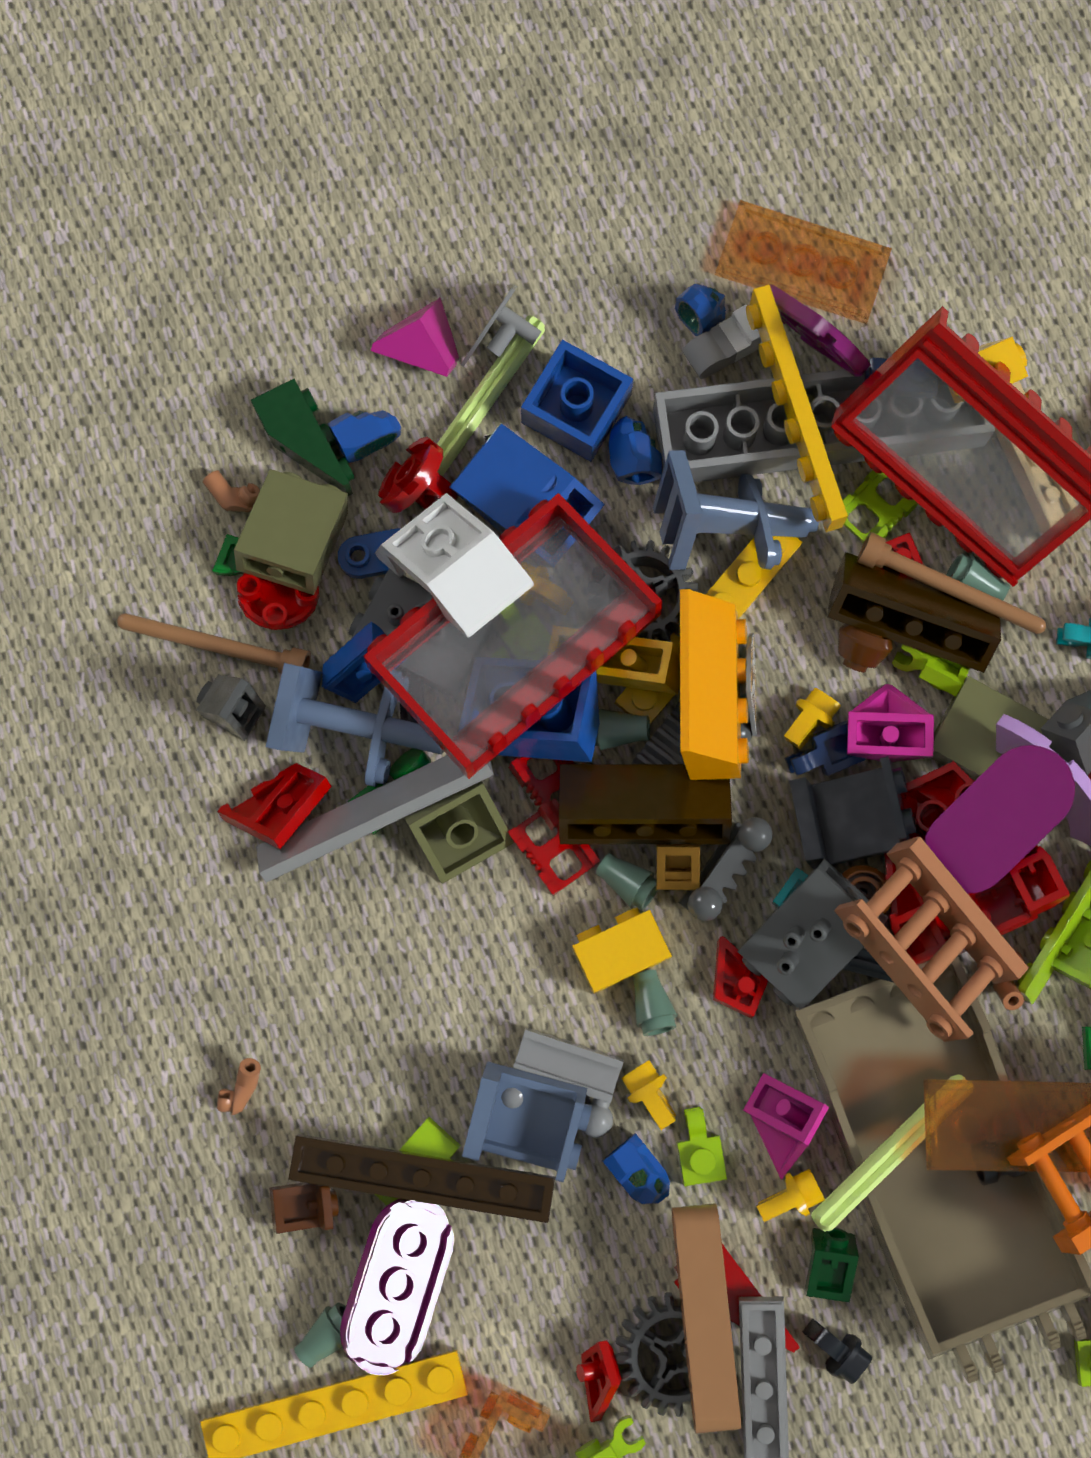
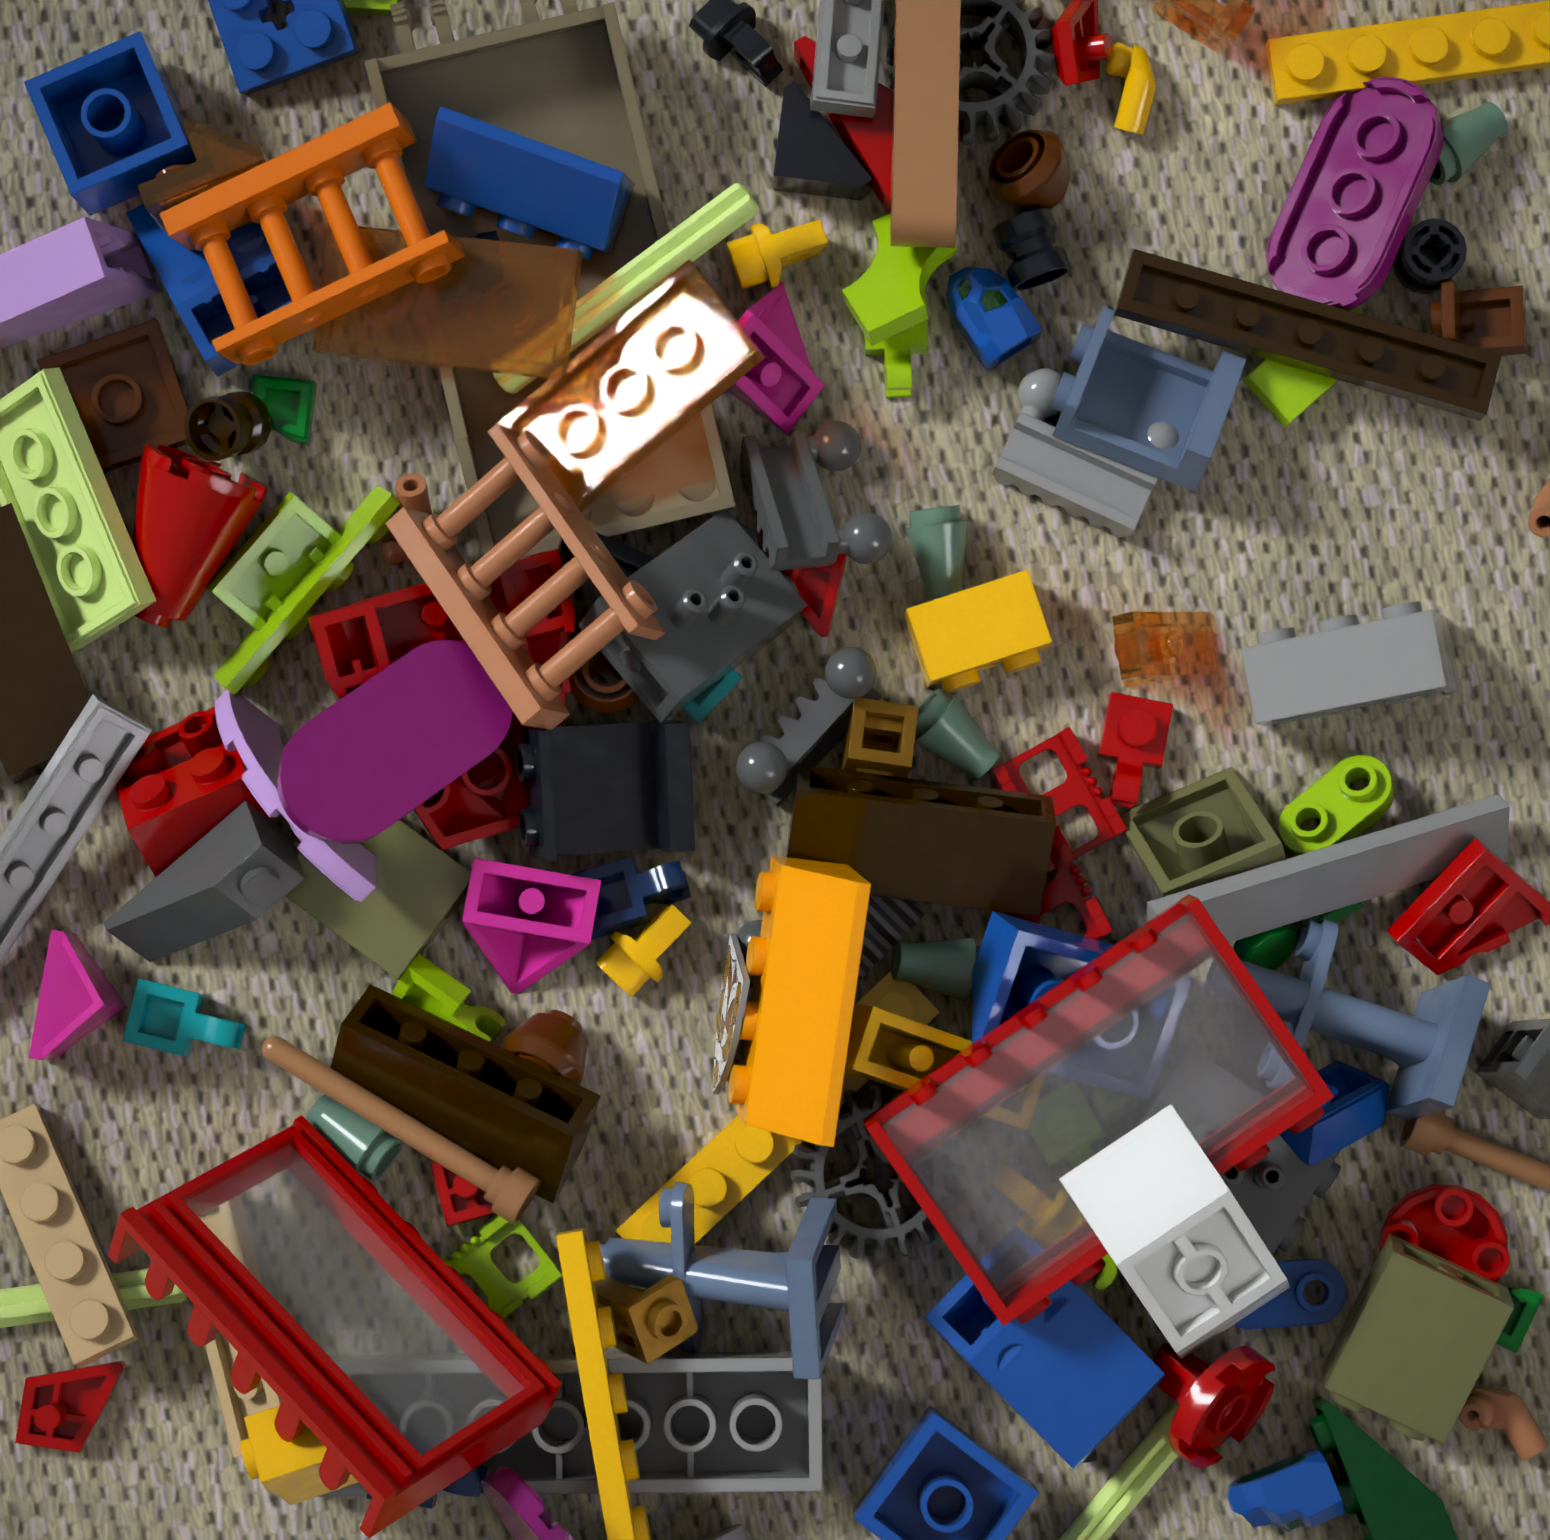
camera: 175 degrees left, 5 degrees up
(348, 1246) = (1425, 267): none -> black wheel
(368, 858) = (1341, 810): none -> lime plate
(370, 954) = (1350, 665): none -> light grey wedge
(496, 954) = (1164, 646): none -> clear orange slope
(508, 895) = (1134, 737): none -> red plate
(554, 1346) = (1138, 89): none -> yellow arm
(617, 1223) = (1029, 242): none -> black wheel
(623, 1275) = (1030, 171): none -> reddish brown cone
(634, 453) = (864, 1407): blue rock -> none
(645, 1086) = (963, 428): yellow piece -> none
(708, 1176) = (892, 288): none -> lime tile
(757, 1019) = (793, 503): none -> dark grey gear
(777, 1269) = (813, 156): none -> black slope
(779, 481) = (650, 1319): none -> pearl gold bracket
(832, 1265) = (727, 149): dark green bracket -> none
(875, 1084) = (637, 384): none -> clear orange tile
(970, 1219) = (525, 184): none -> blue slope

